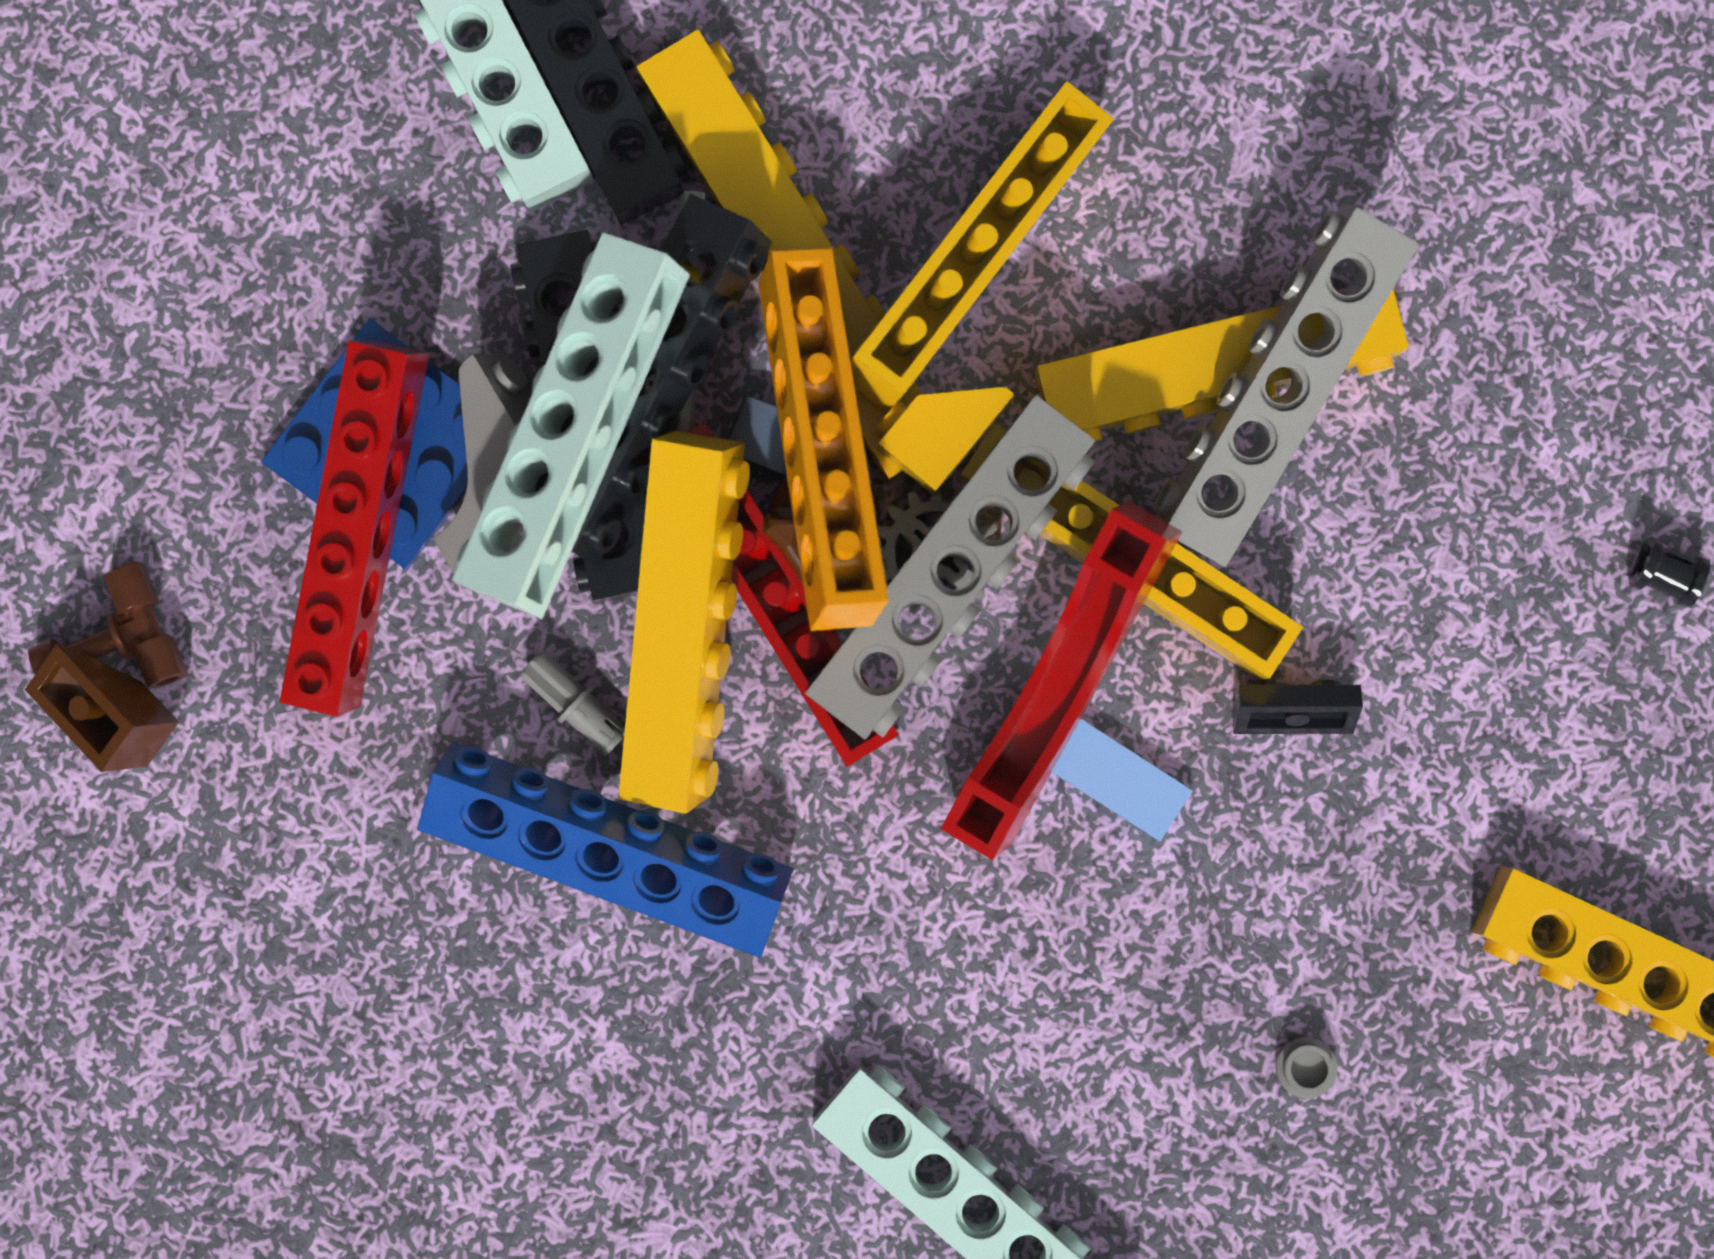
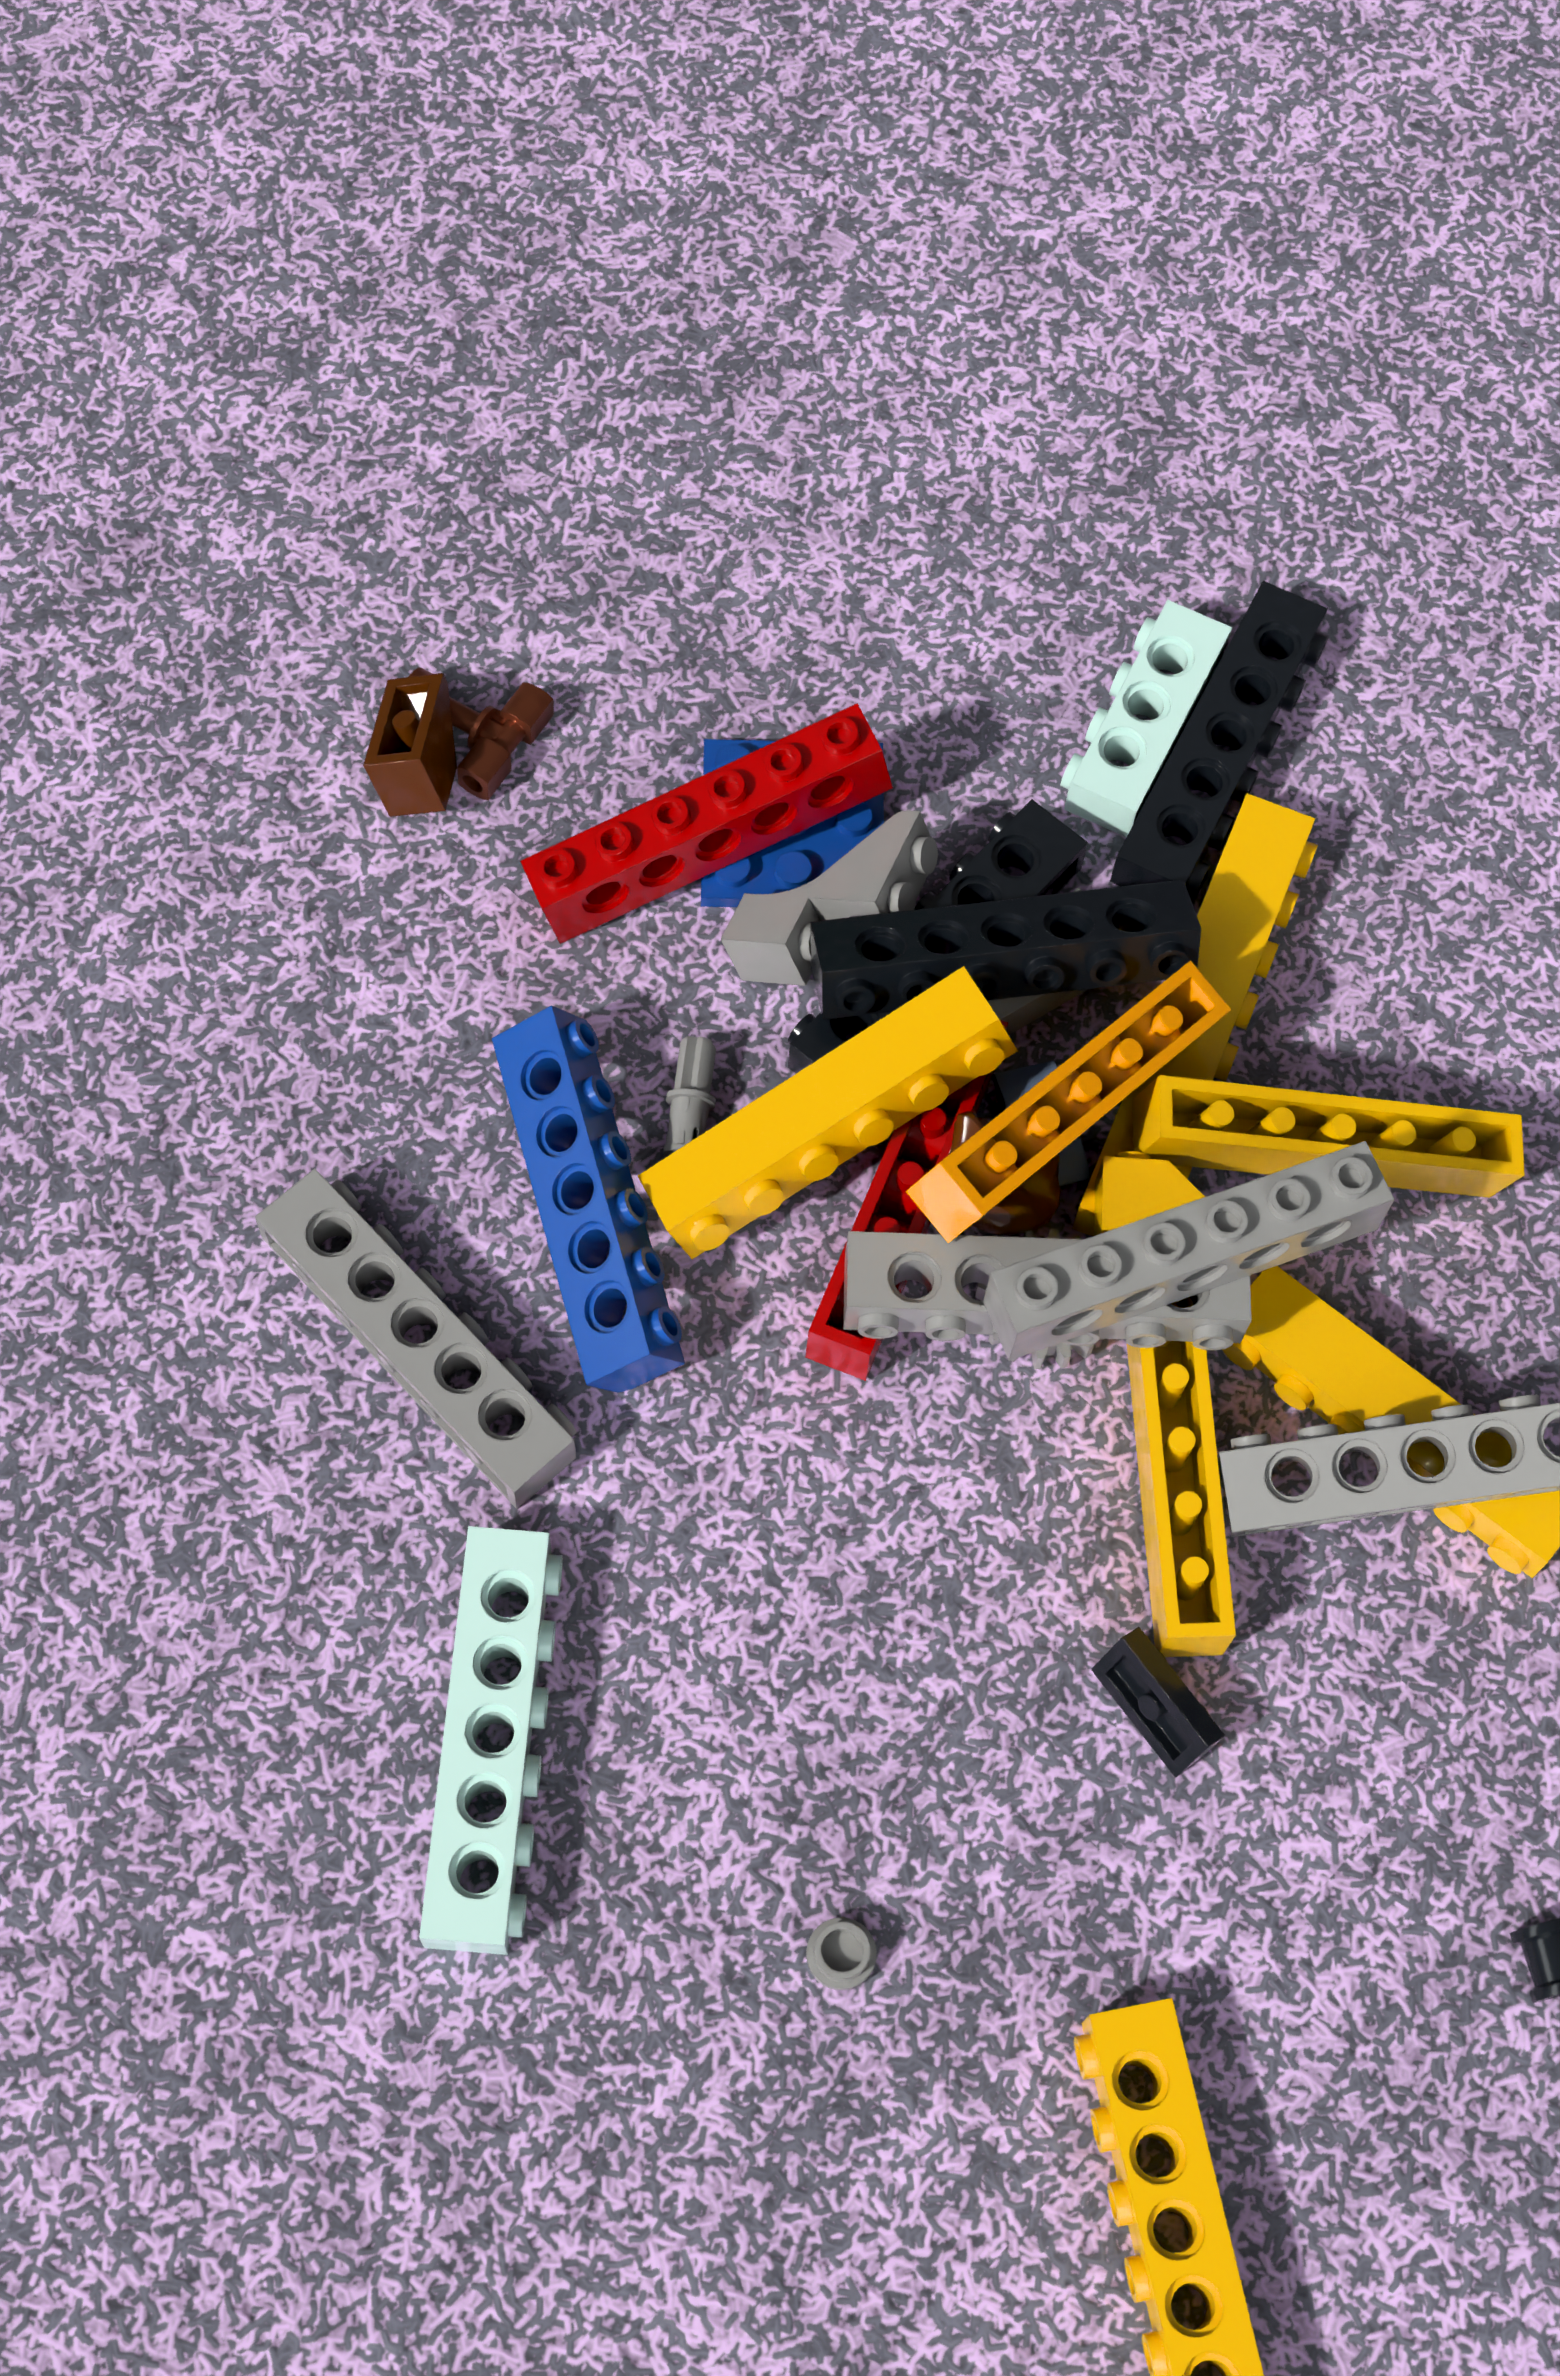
camera: 50 degrees right, 20 degrees down
(471, 1090) = (515, 1463): none -> light grey brick
(578, 457) = (924, 901): light aqua brick -> none
(1018, 453) = (1186, 1250): none -> light grey brick
(1083, 645) = (1140, 1430): red arch -> none
(1121, 780) = (971, 1571): light blue tile -> none

